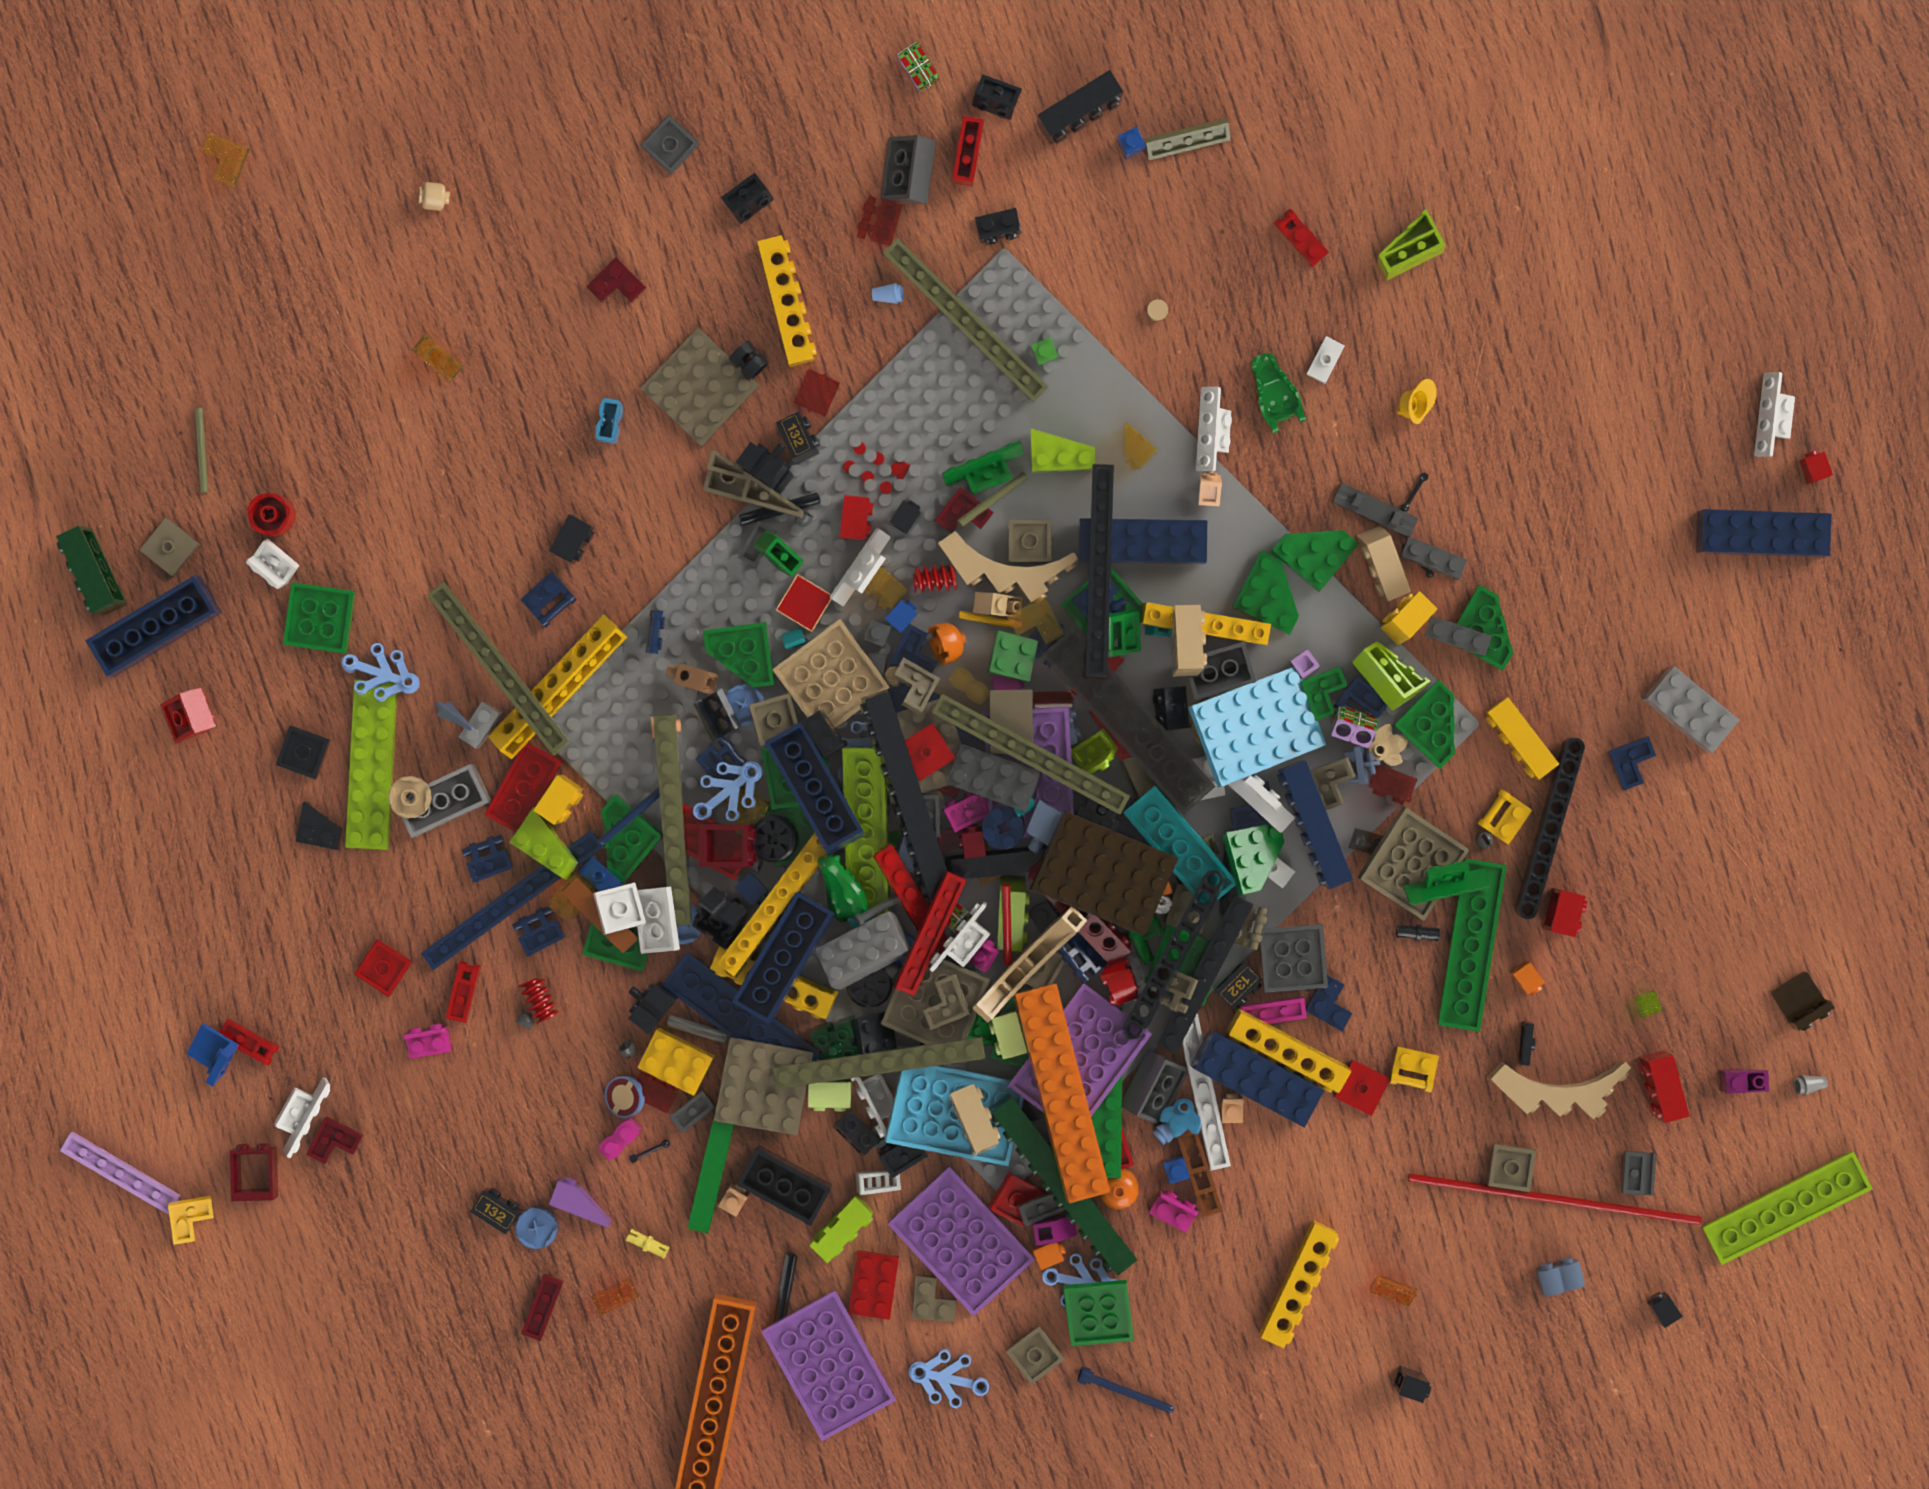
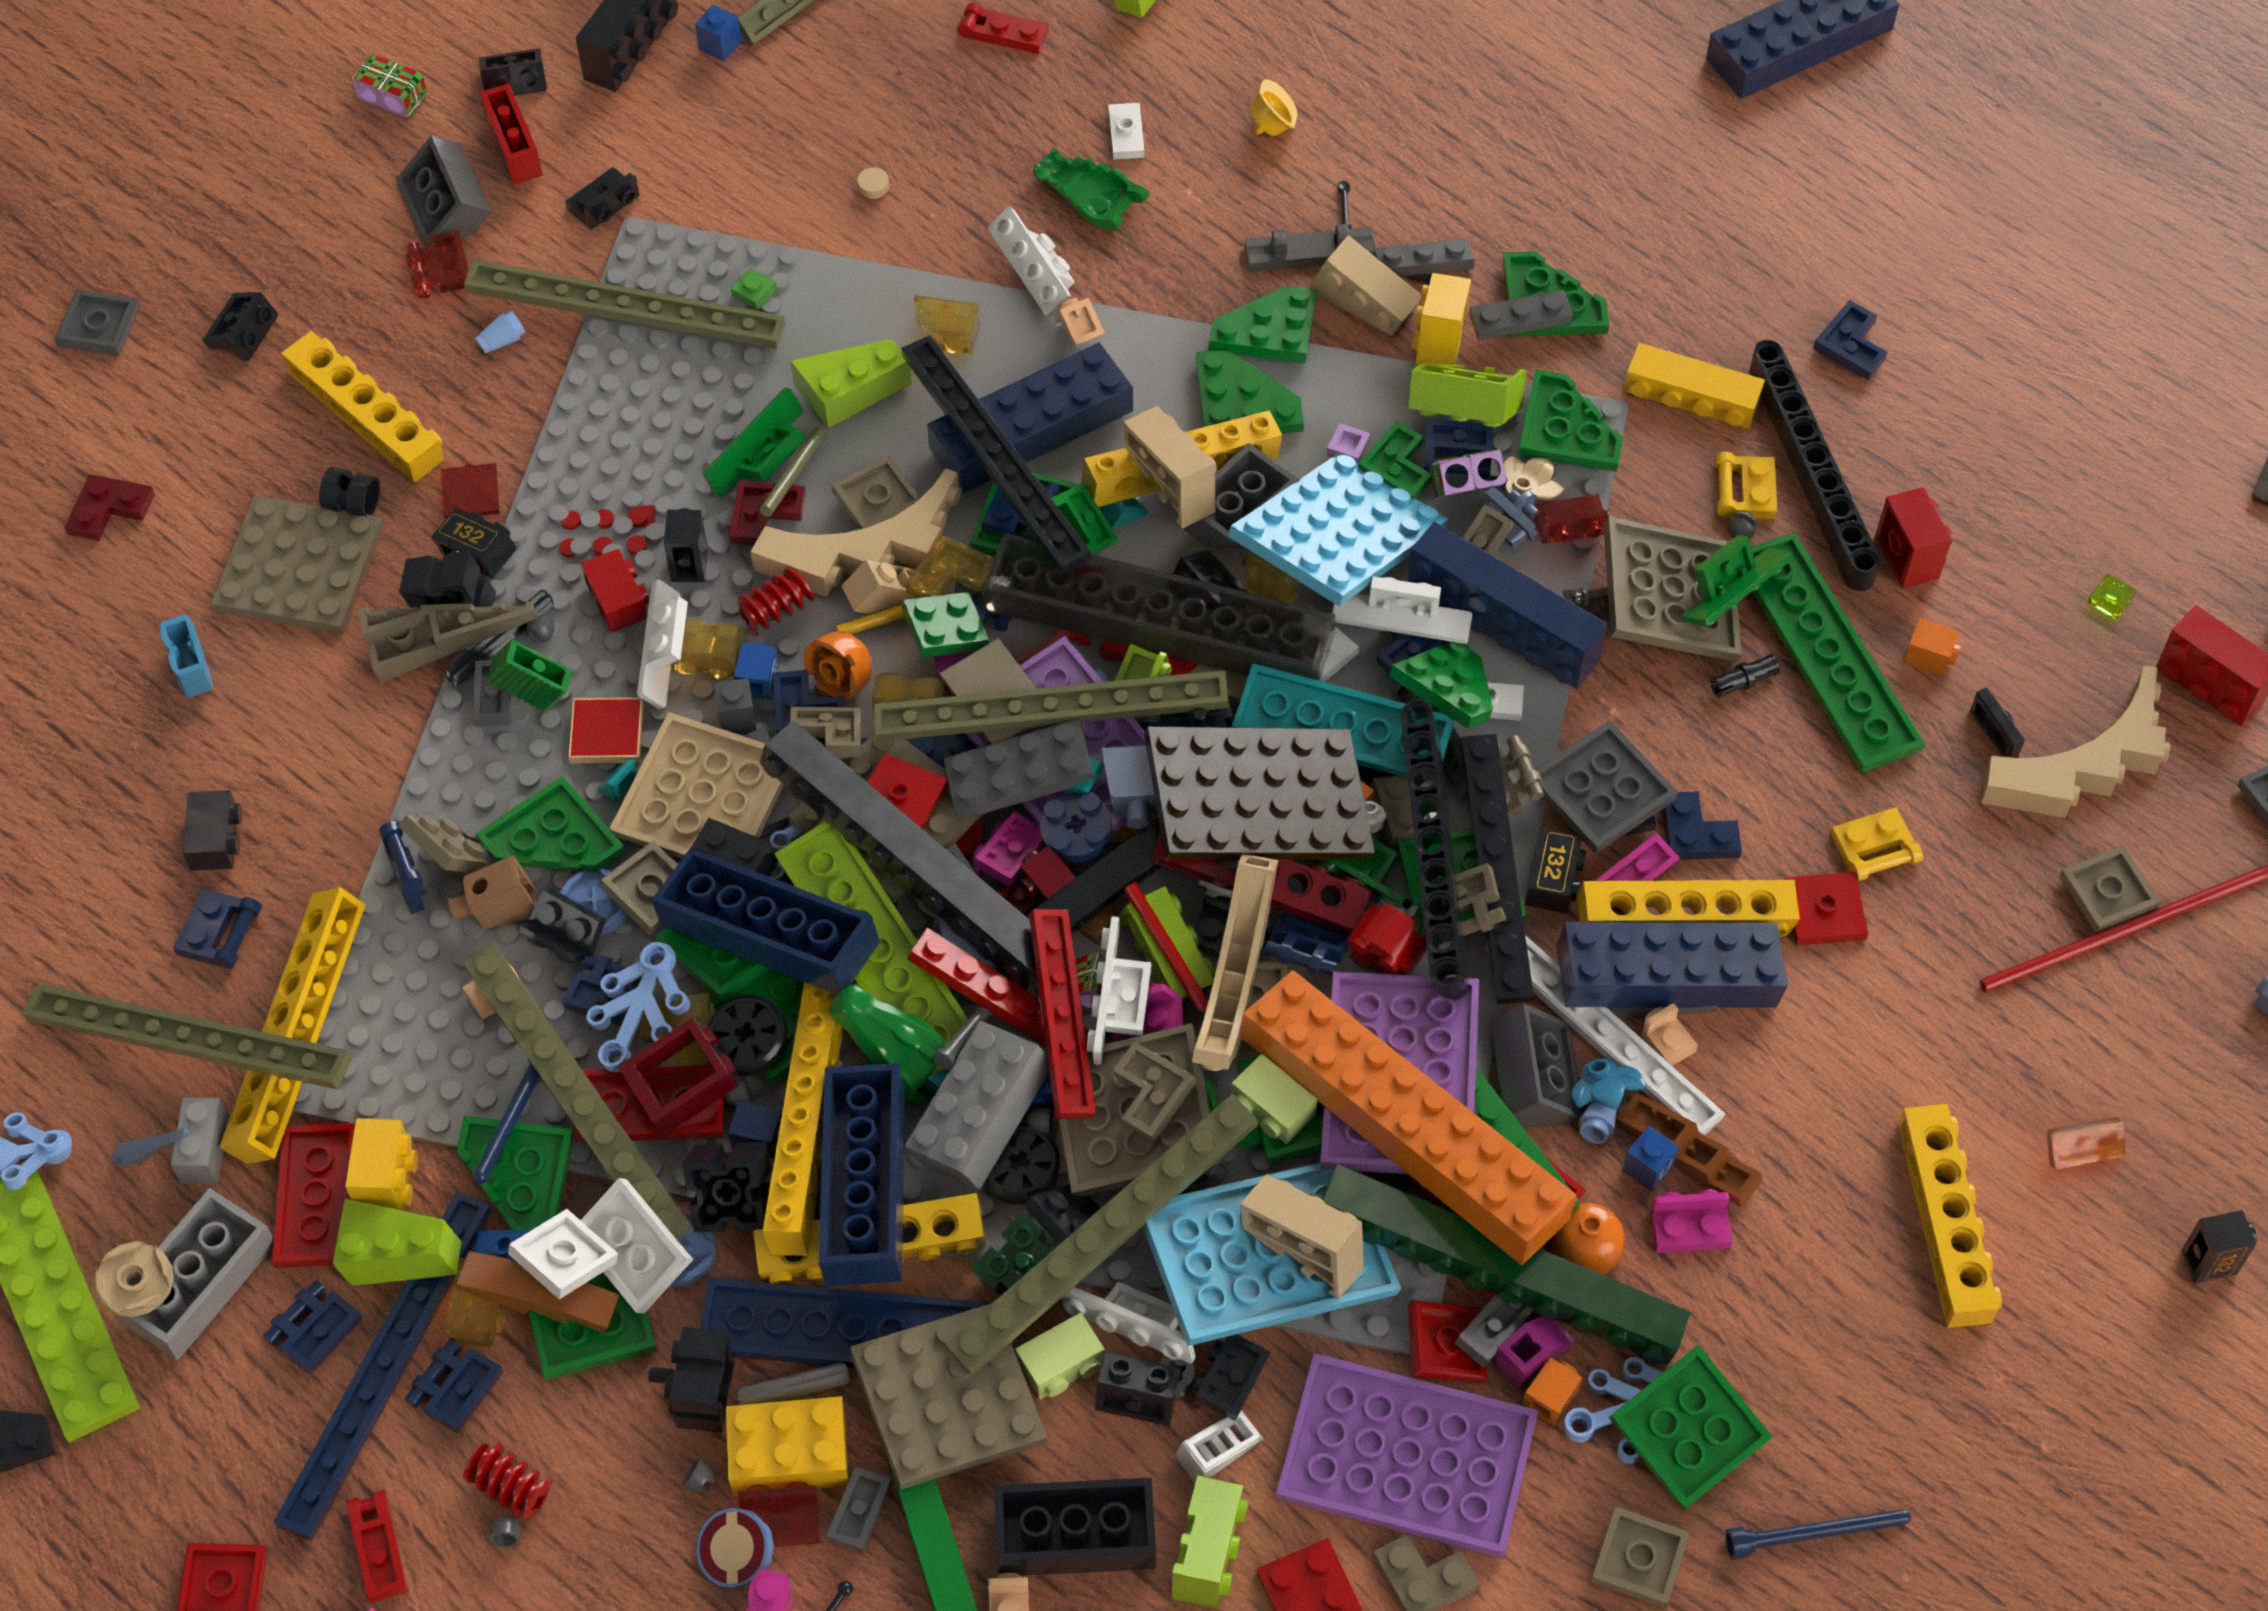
camera: 35 degrees left, 30 degrees down
(682, 632) = (445, 843): none -> dark tan plate
(1690, 709) = (1875, 246): light grey brick -> none

